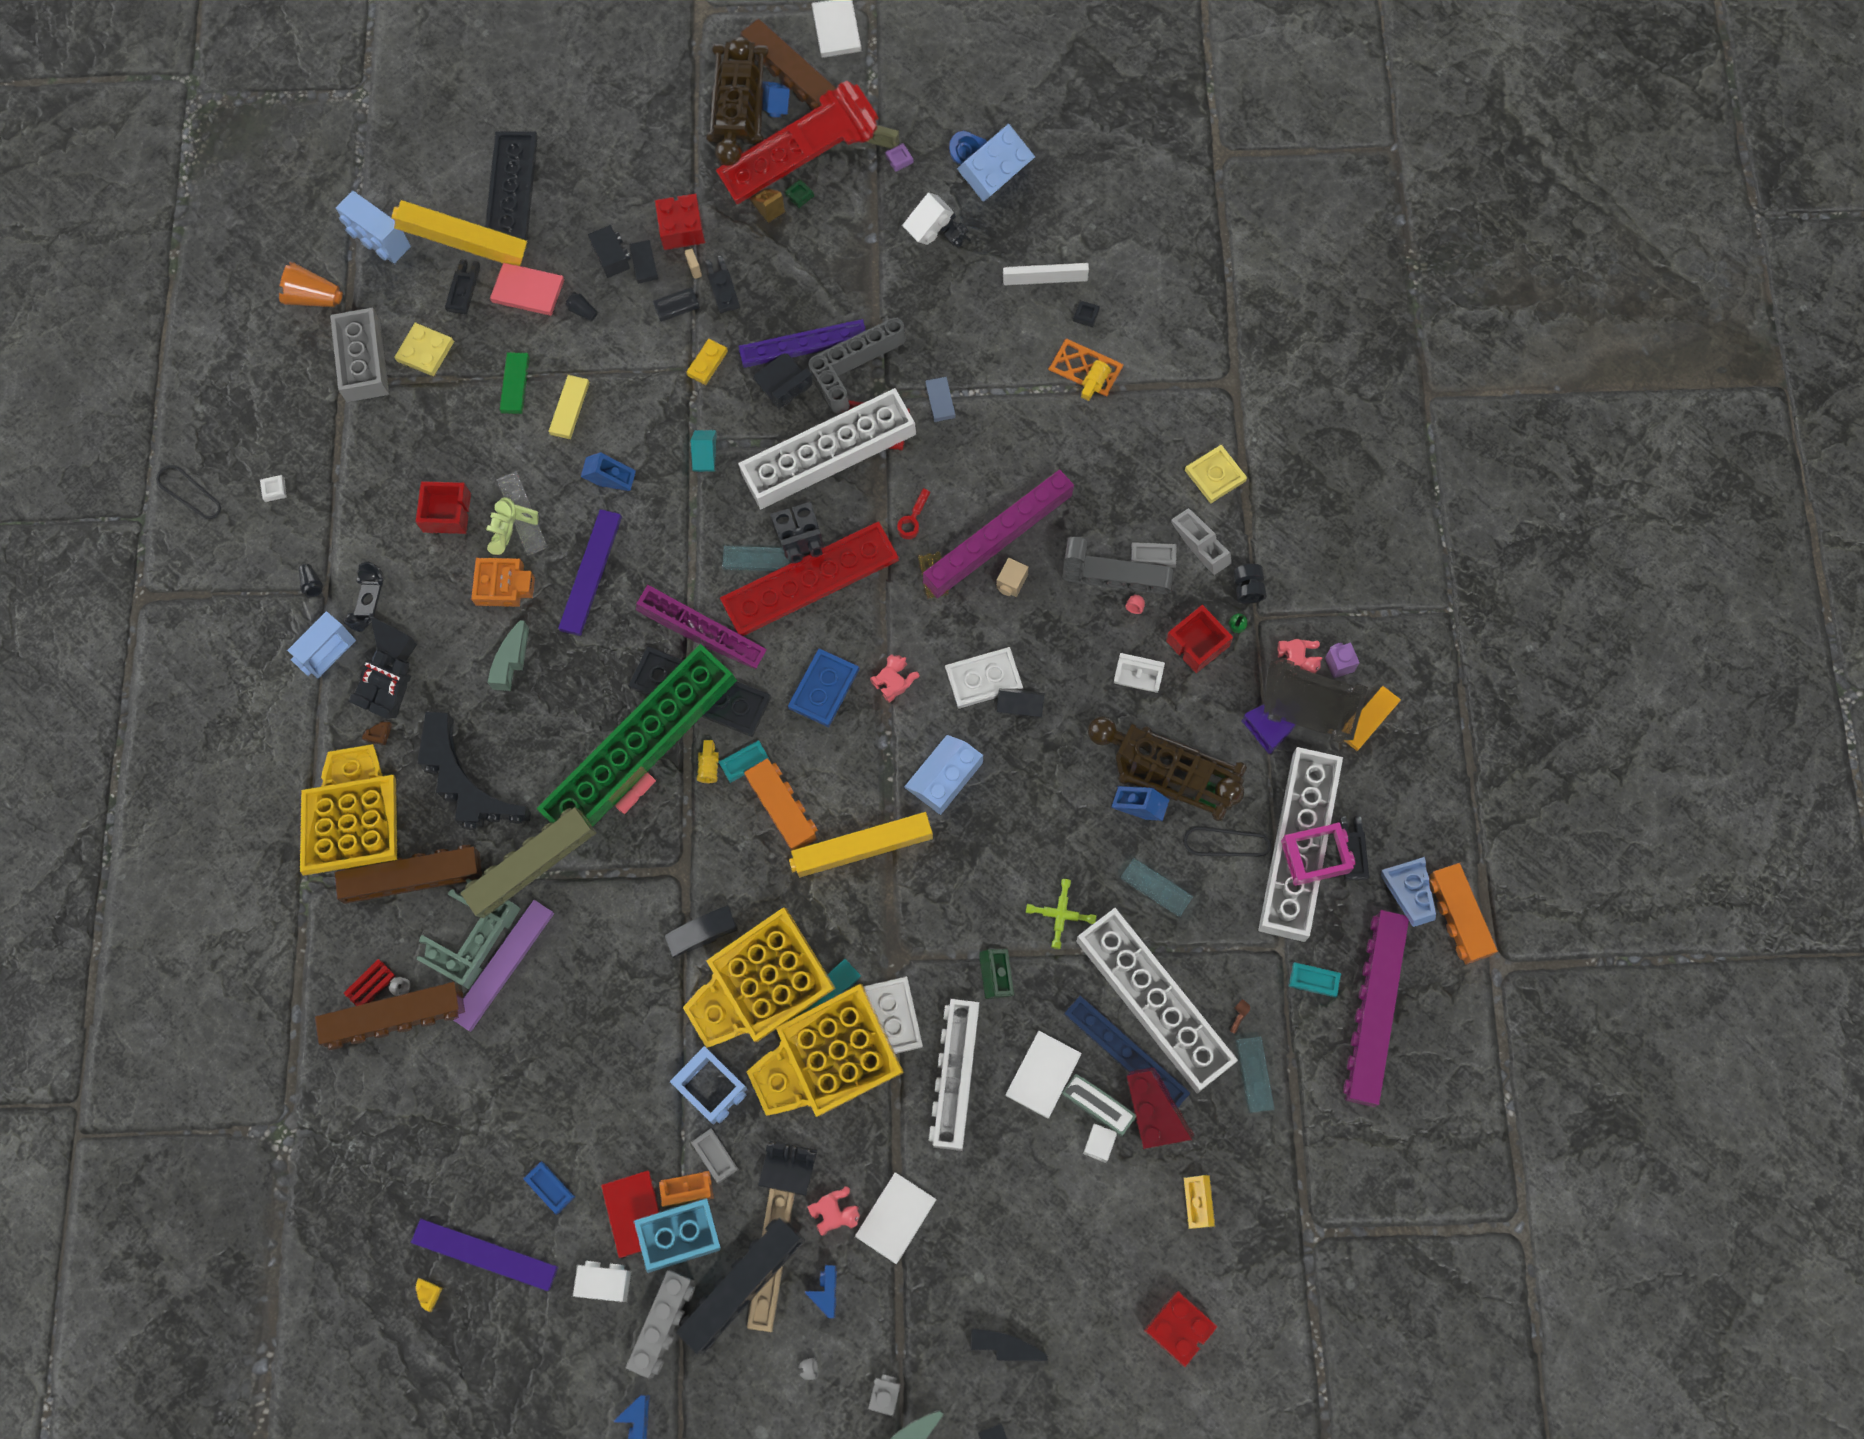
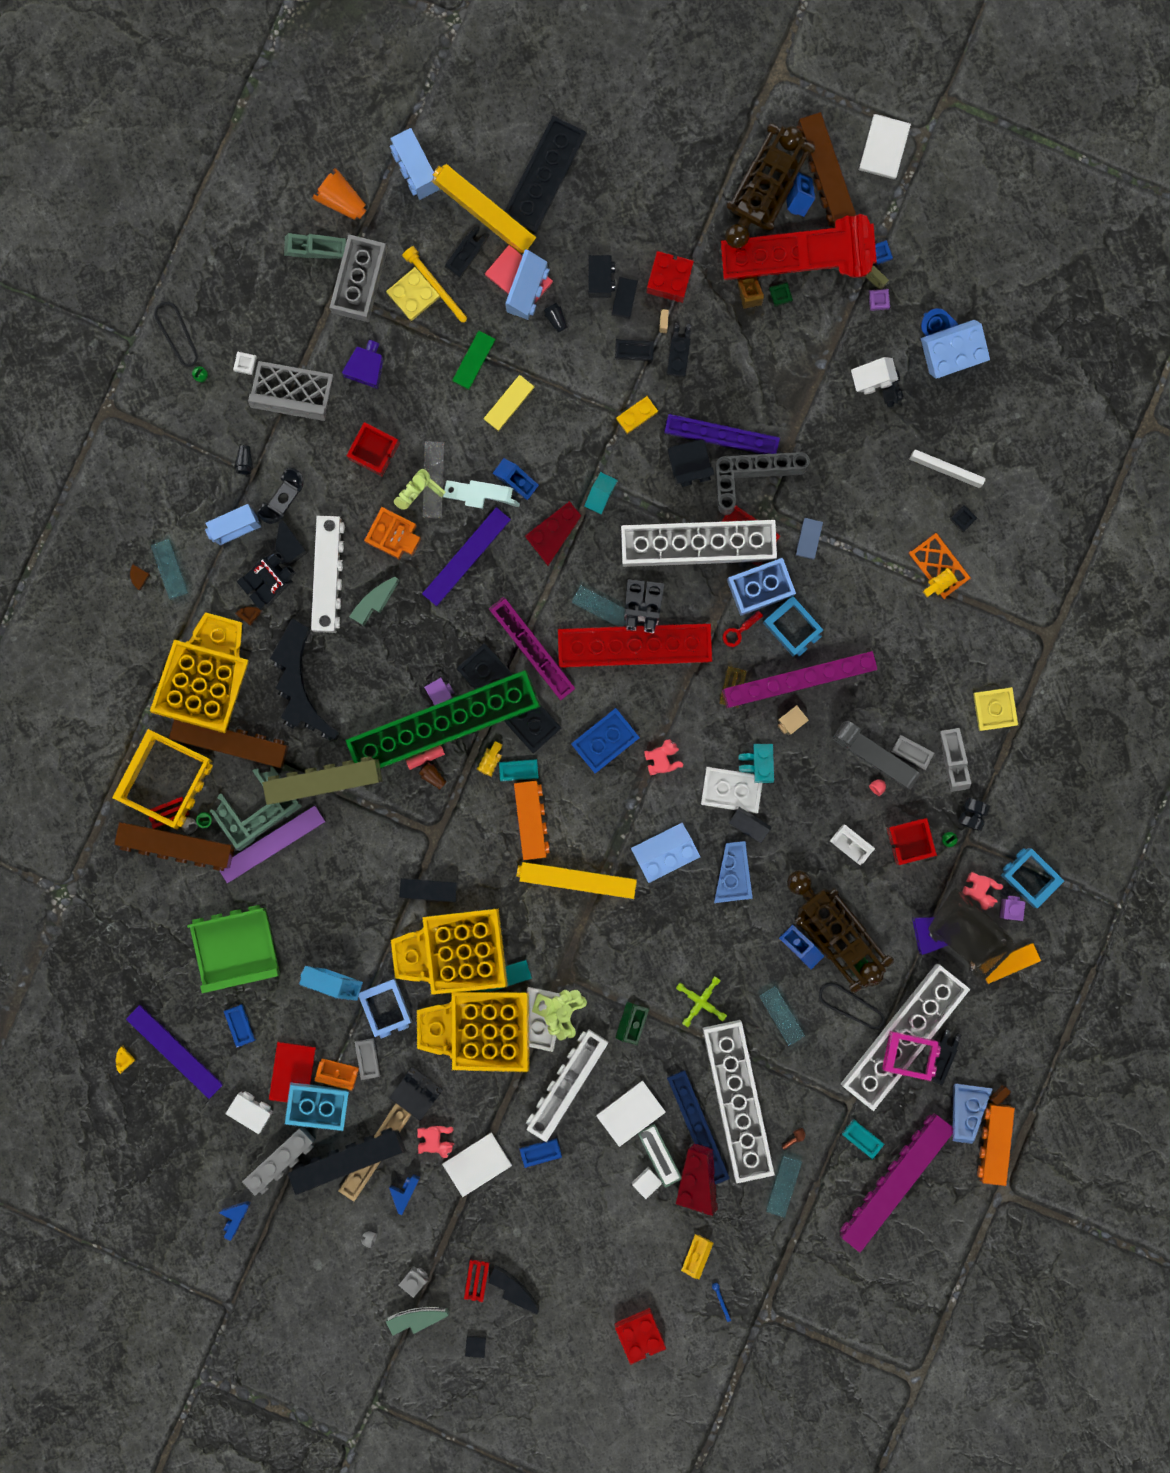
camera: 20 degrees right, 15 degrees up
(231, 519) = (202, 376): none -> green hinge
(239, 748) = (138, 577): none -> reddish brown tile
(271, 726) = (169, 569): none -> clear light blue tile
(300, 348) = (314, 246): none -> sand green slope
(313, 938) = (136, 765): none -> yellow window
(334, 506) = (285, 405): none -> light grey fence
(401, 435) = (365, 365): none -> dark purple torso
(407, 314) = (411, 255): none -> yellow piece
(411, 967) = (204, 823): none -> green hinge
(446, 653) = (326, 574): none -> white piece
(506, 1101) = (234, 949): none -> bright green panel
(536, 285) = (527, 285): none -> light blue slope
(573, 502) = (477, 492): none -> light aqua piece
(616, 714) = (439, 691): none -> medium lavender brick
(632, 1081) = (330, 983): none -> dark azure window
(651, 808) = (432, 775): none -> reddish brown cone
(671, 509) = (552, 533): none -> dark red wing
(884, 115) = (883, 252): none -> blue tile
(908, 995) = (560, 1011): none -> yellowish green piece
(913, 461) = (761, 586): none -> light blue brick
(961, 504) = (779, 636): none -> dark azure window
(962, 1169) = (540, 1152): none -> blue tile
(964, 1380) = (473, 1297): none -> red tile
(1002, 634) = (763, 763): none -> teal hinge
(1030, 762) = (734, 874): none -> medium blue wing
(1238, 1229) = (715, 1286): none -> blue hinge
(1336, 636) = (1046, 891): none -> dark azure window
(1436, 859) = (999, 1095): none -> reddish brown tile

